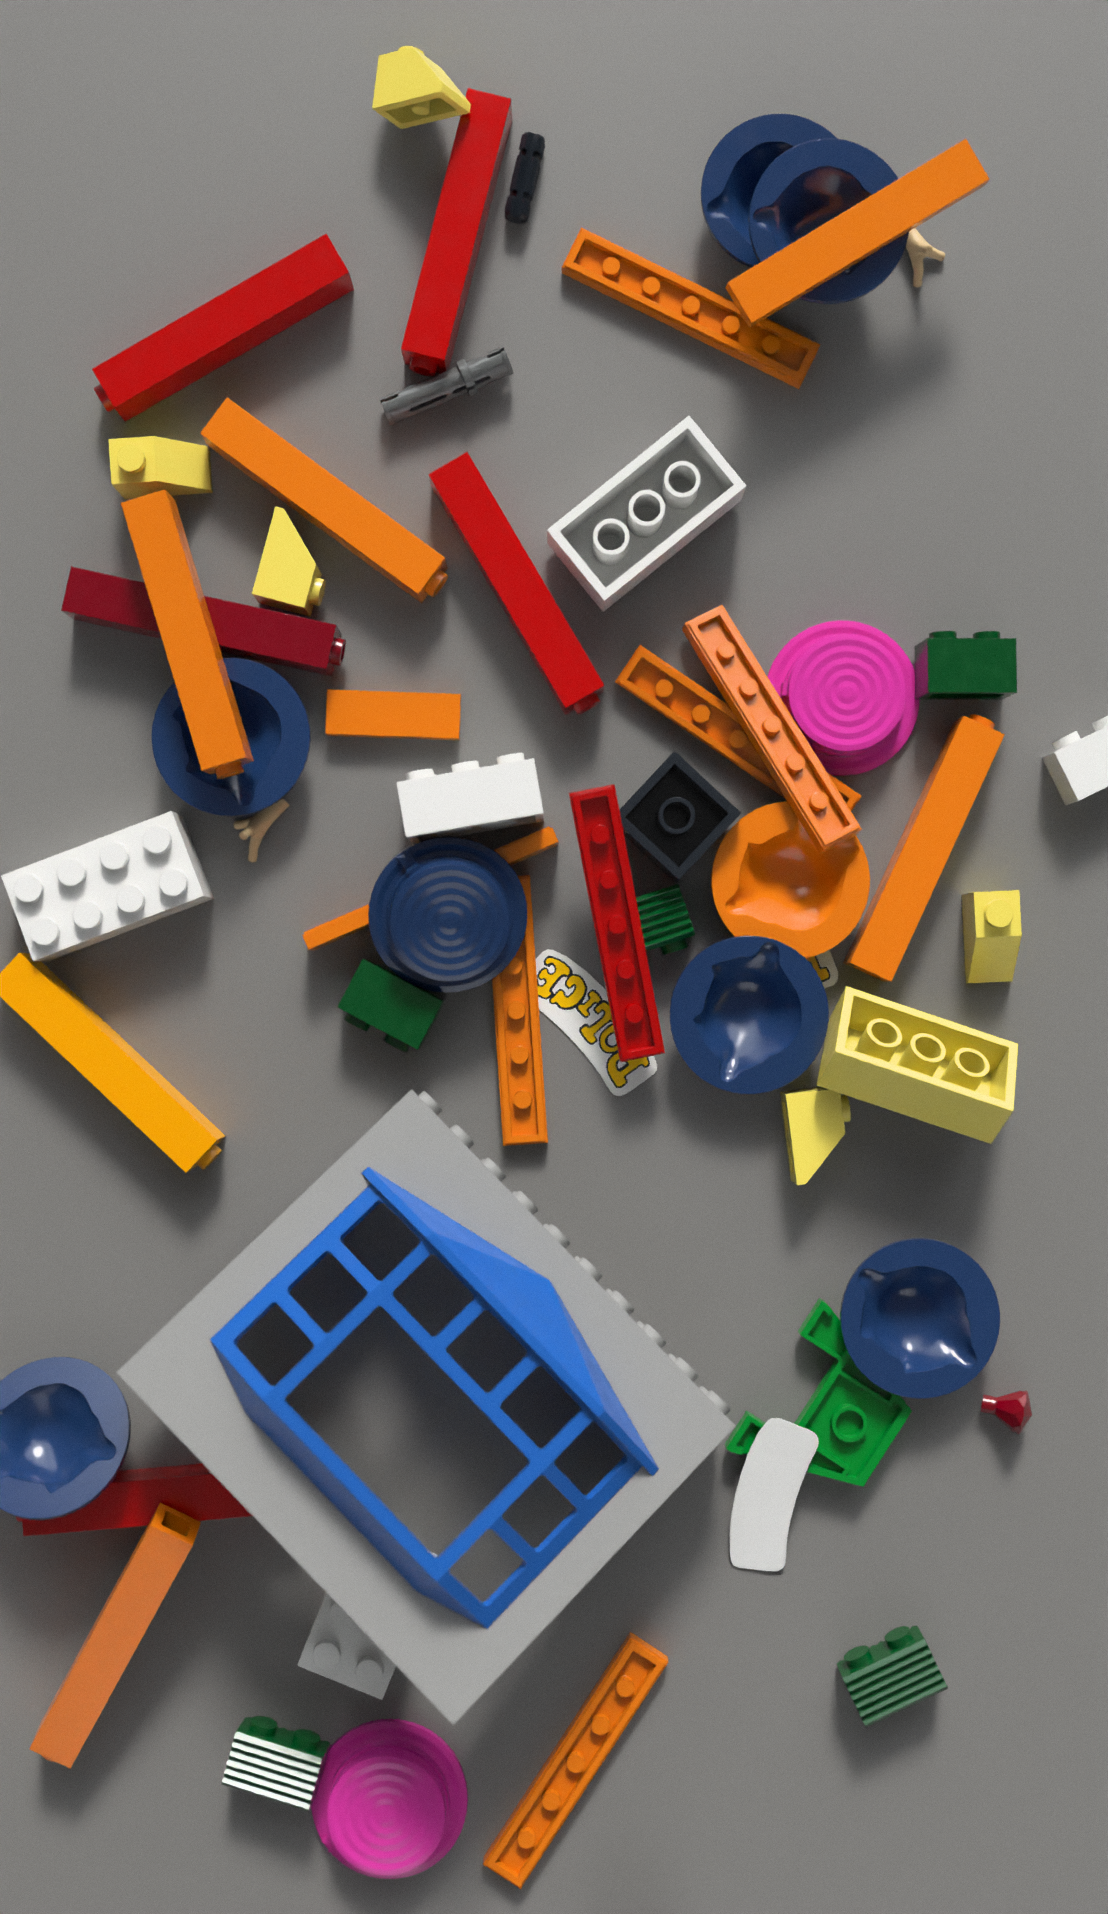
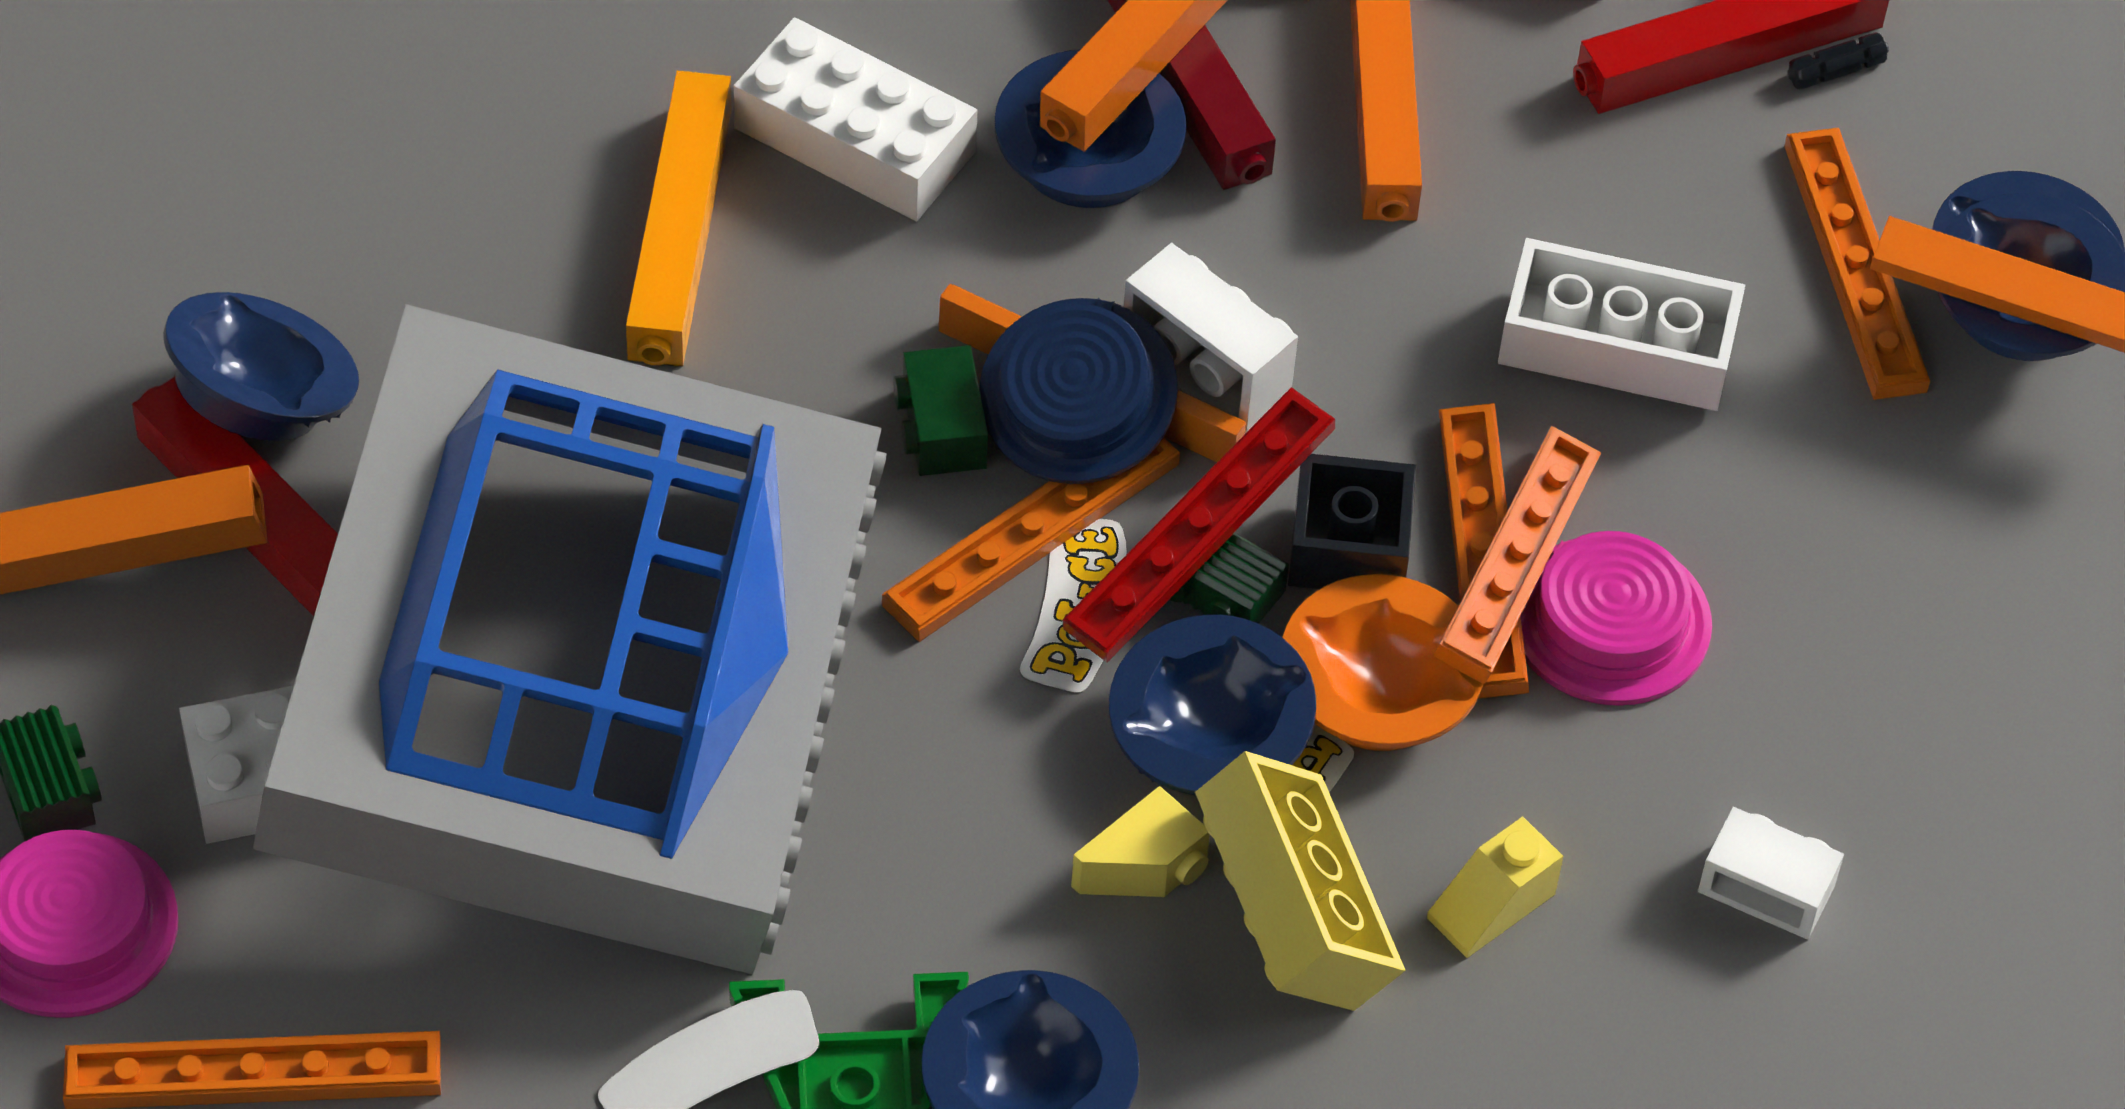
camera: 45 degrees right, 35 degrees down
(258, 825) = (1026, 209): tan bar -> none
(287, 570) = (1294, 82): light yellow slope -> none
(393, 714) = (1232, 250): orange tile -> none
(440, 388) = (1605, 118): dark grey pin -> none
(517, 585) = (1452, 273): red brick -> none
(919, 249) = (2104, 405): tan bar -> none
(924, 847) = (1526, 771): orange brick -> none
(965, 667) = (1742, 690): dark green brick -> none

